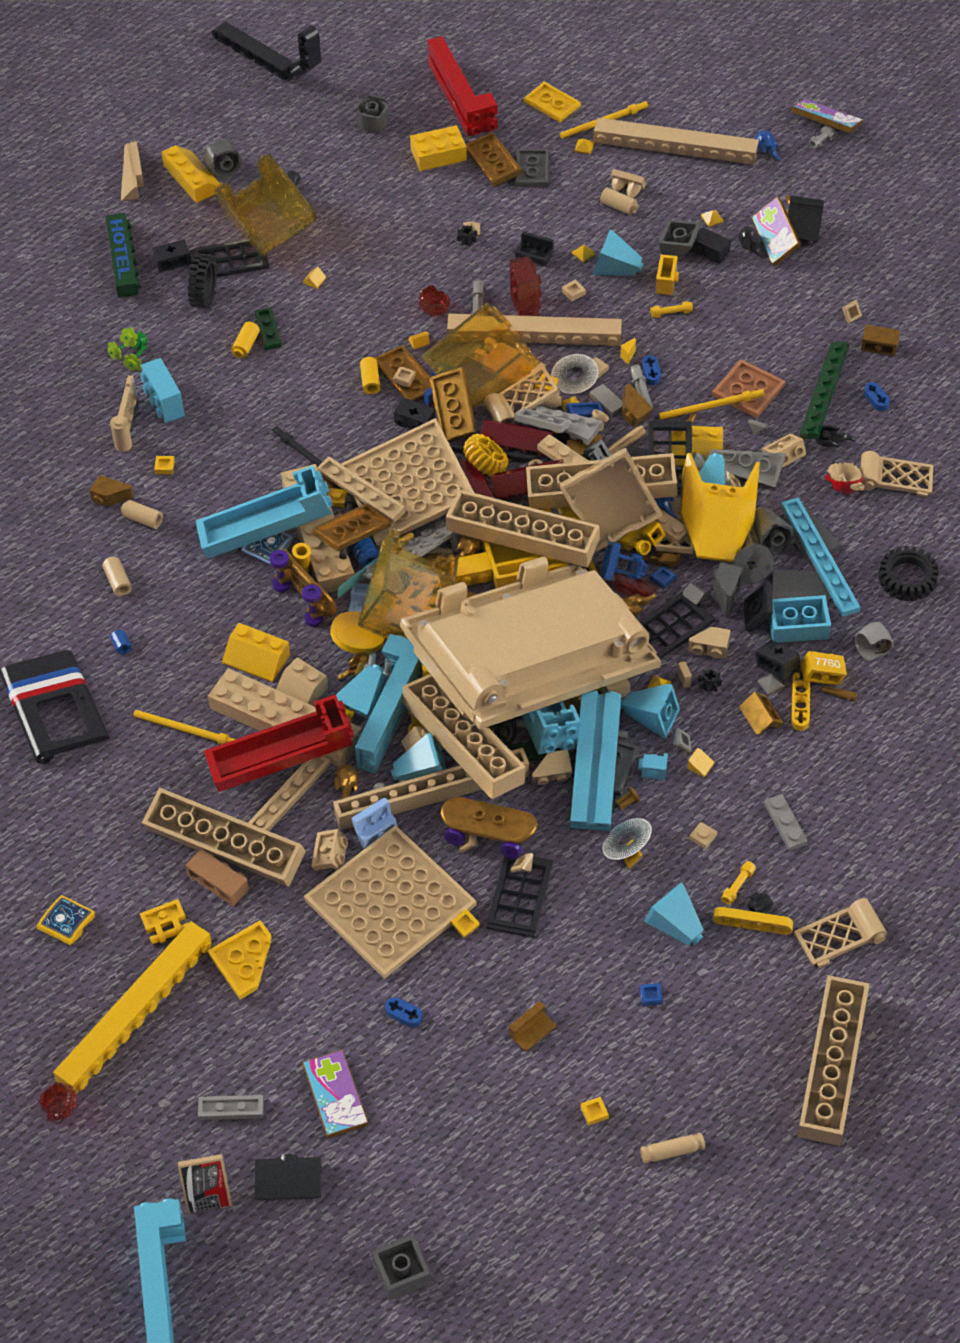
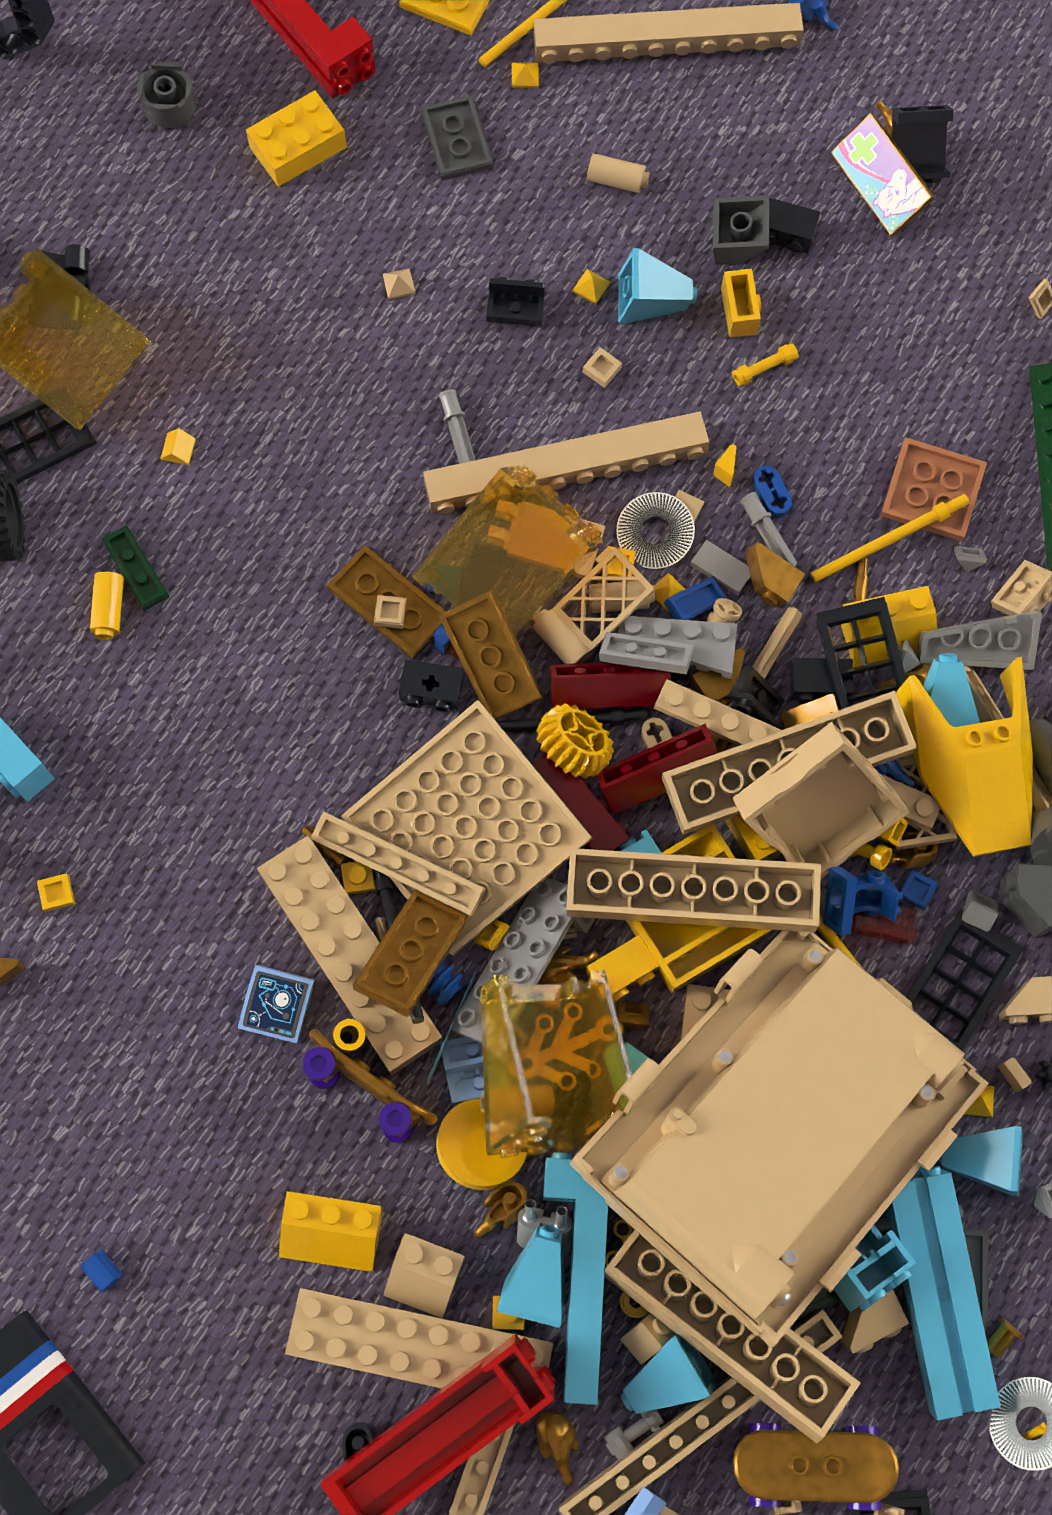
camera: 20 degrees left, 20 degrees up
(117, 576) = (51, 1141): tan brick -> none
(142, 514) = (51, 1004): tan brick -> none
(219, 738) = (330, 1413): yellow bar -> none
(266, 514) = (261, 968): medium azure brick -> none
(289, 439) = (241, 783): black bar -> none
(370, 375) = (333, 622): yellow brick -> none
(419, 340) = (387, 527): yellow slope -> none
(433, 301) = (388, 449): clear red hair -> none
(467, 235) = (401, 295): black gear -> none
(468, 546) = (603, 930): pearl gold piece -> none
(493, 159) = (391, 137): pearl gold tile -> none
(525, 287) = (532, 393): clear red brick -> none
(633, 182) = (630, 134): tan tile -> none
(635, 601) = (889, 962): pearl gold piece -> none
(653, 766) = (1024, 1265): medium azure brick -> none
(712, 218) = (769, 167): yellow slope -> none
(749, 237) = (842, 196): black piece -> none

